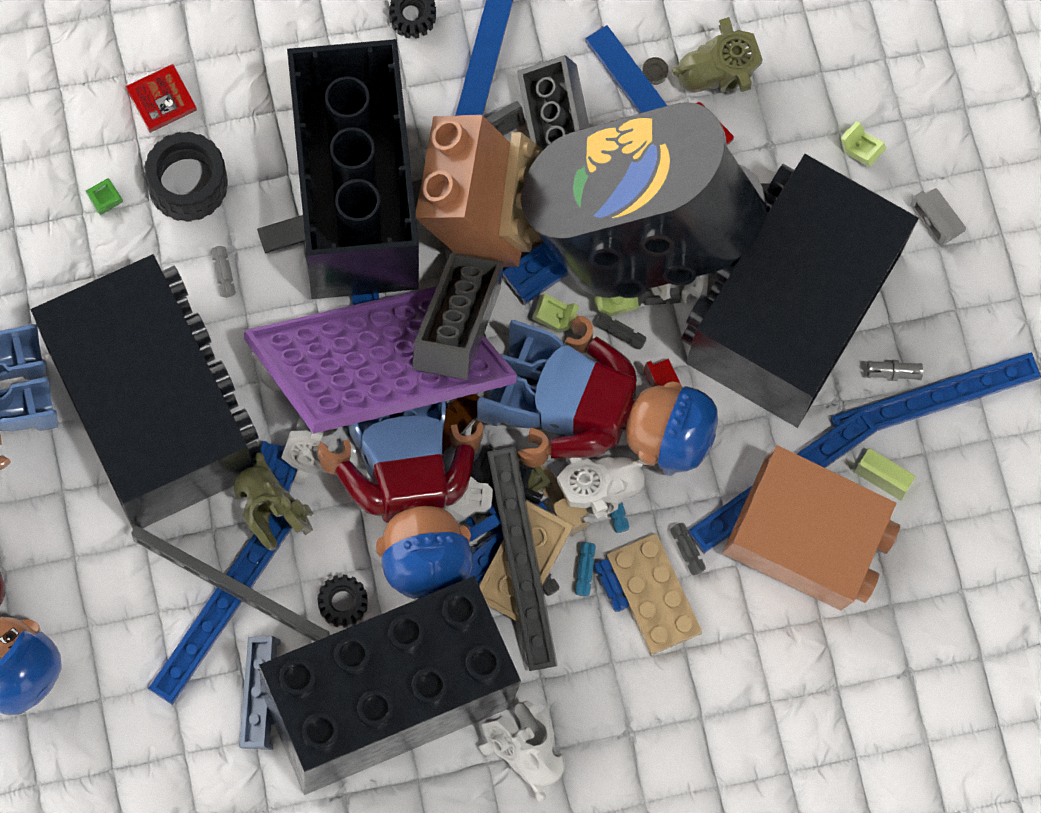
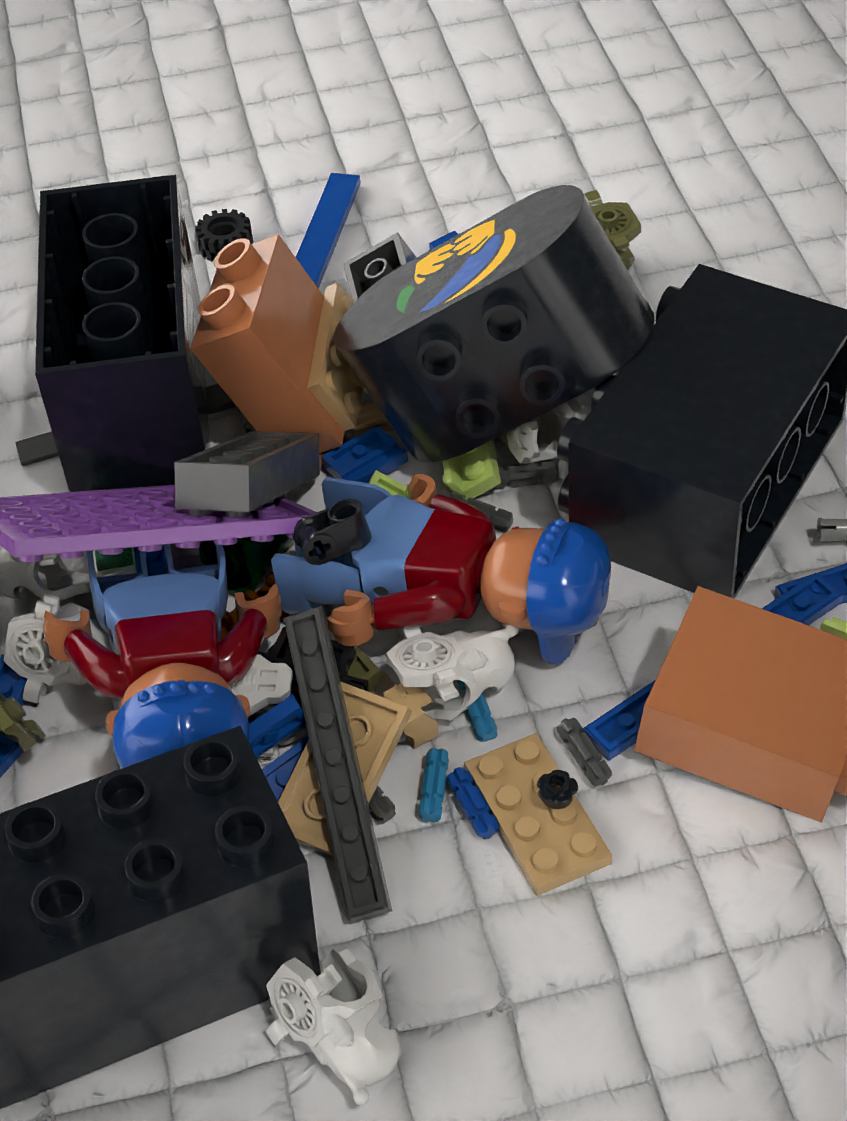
camera: 10 degrees right, 25 degrees down
(521, 390) = (335, 531): none -> black piece
(669, 592) = (557, 797): none -> black plate

